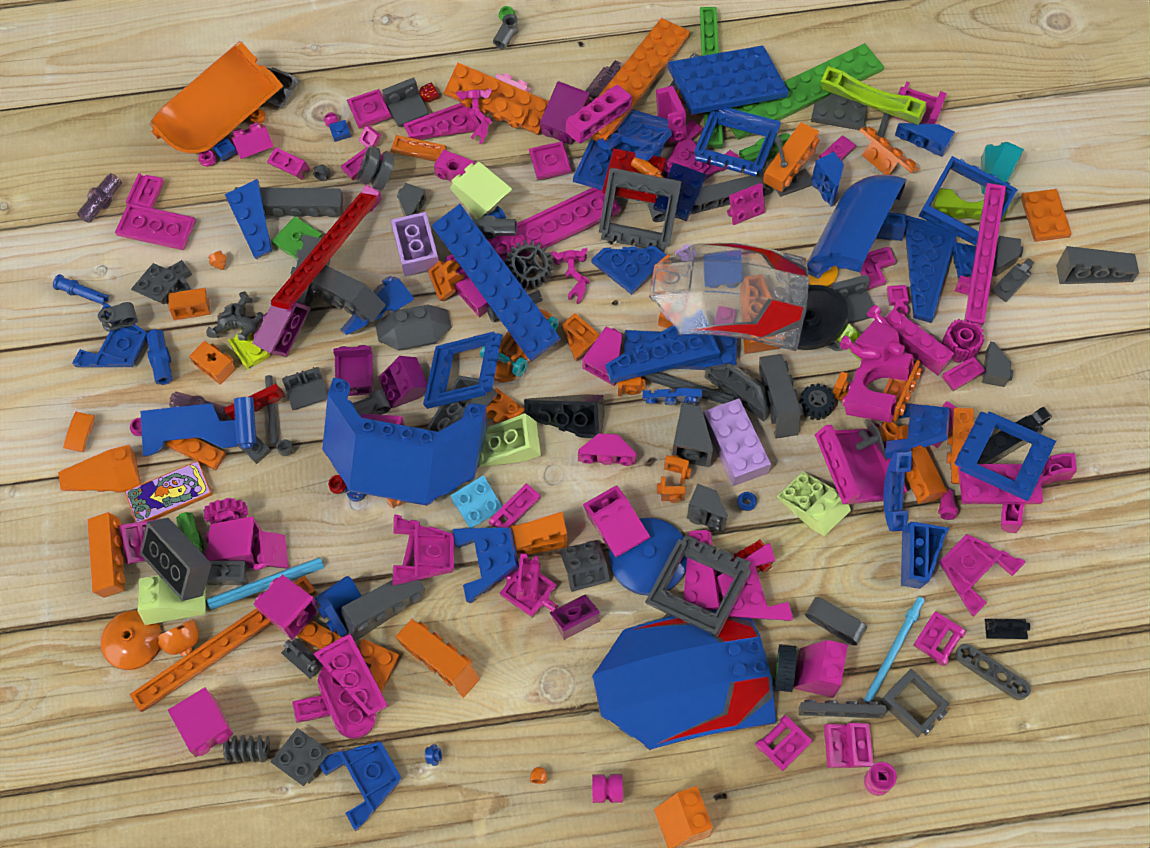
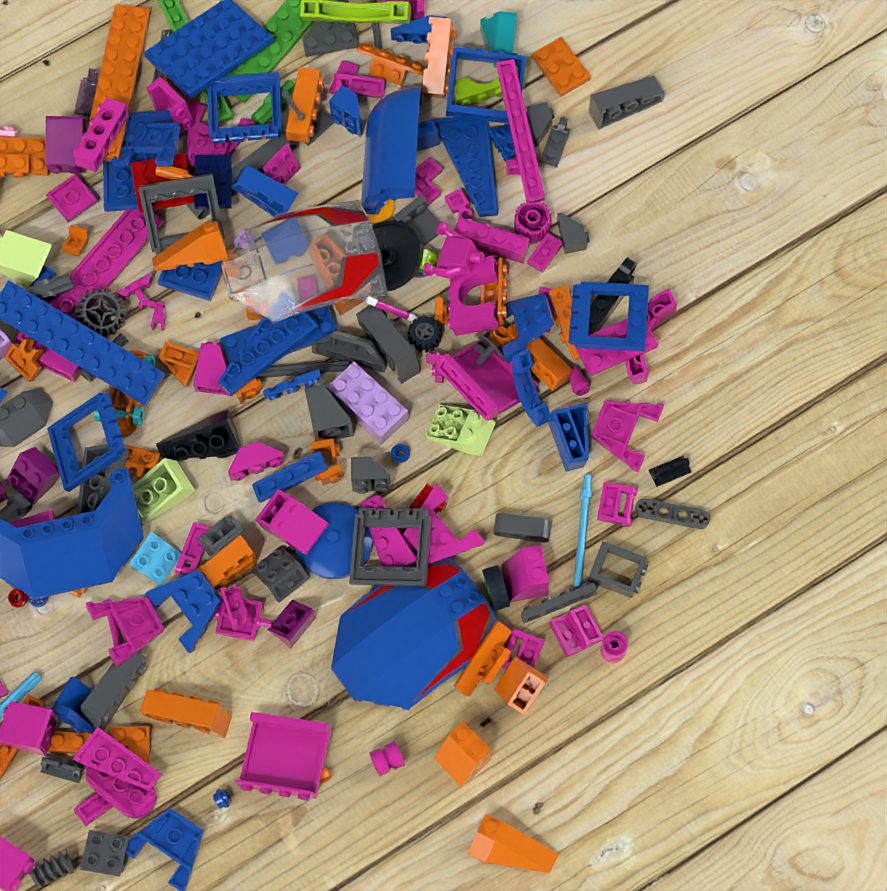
camera: 25 degrees left, 5 degrees up
(510, 741) = (284, 756): none -> dark pink panel
(537, 197) = (76, 241): none -> orange bracket
(544, 505) = (220, 535): none -> dark grey hinge
(633, 478) = (290, 476): none -> blue plate
(645, 241) = (200, 245): none -> orange wedge
(722, 216) = (264, 191): none -> blue wedge
(746, 735) = (486, 660): none -> orange bracket
(770, 775) = (520, 685): none -> orange slope
(788, 359) = (391, 309): none -> dark pink bar
(814, 427) = (434, 359): none -> dark pink bracket
(852, 162) = (360, 85): none -> dark pink plate
(933, 161) = (438, 57): none -> wedge

